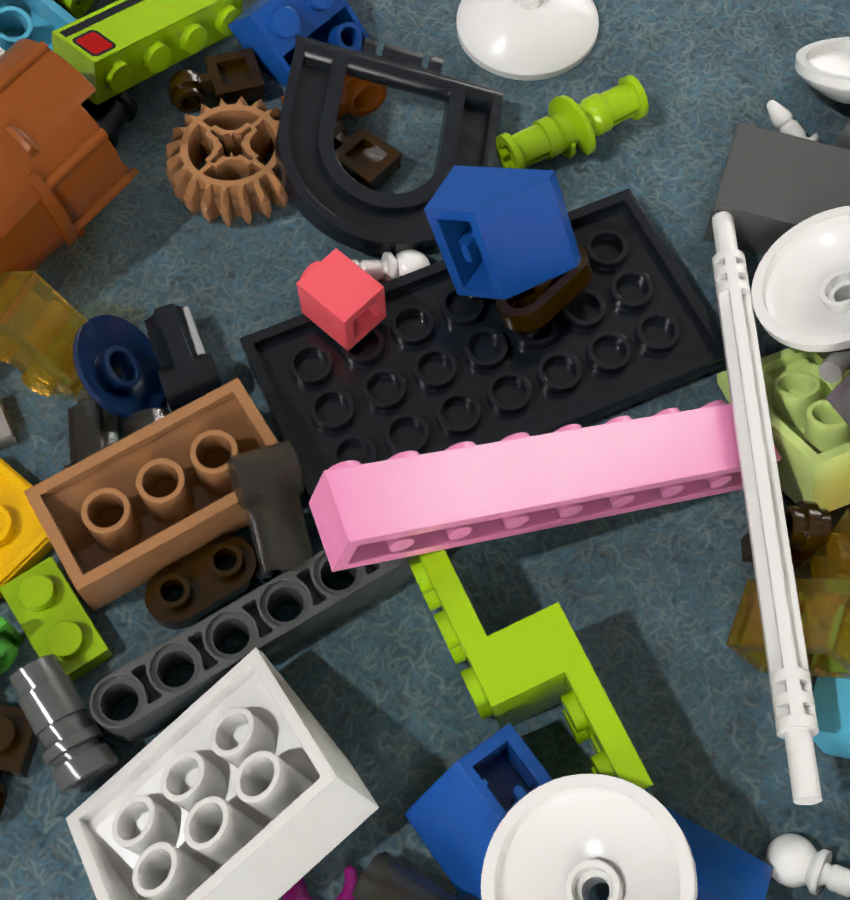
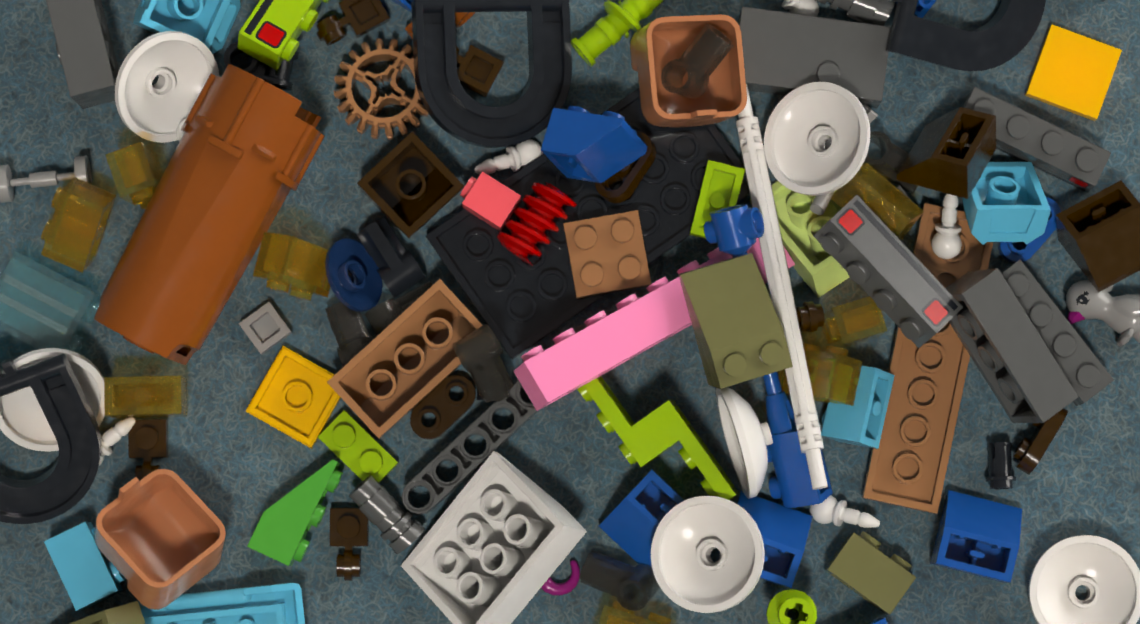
camera: 15 degrees left, 20 degrees up
(229, 259) = (410, 185): none -> dark brown slope
(396, 328) = (535, 221): none -> red piece
(494, 393) = (607, 254): none -> medium nougat plate
(657, 163) = (699, 61): none -> clear smoke piece
(658, 167) = (667, 40): none -> nougat piece
(672, 354) = (718, 191): none -> lime plate
(672, 703) = (745, 440): none -> white dish
(687, 502) = (734, 322): none -> olive slope
(750, 759) = (735, 233): none -> blue bar

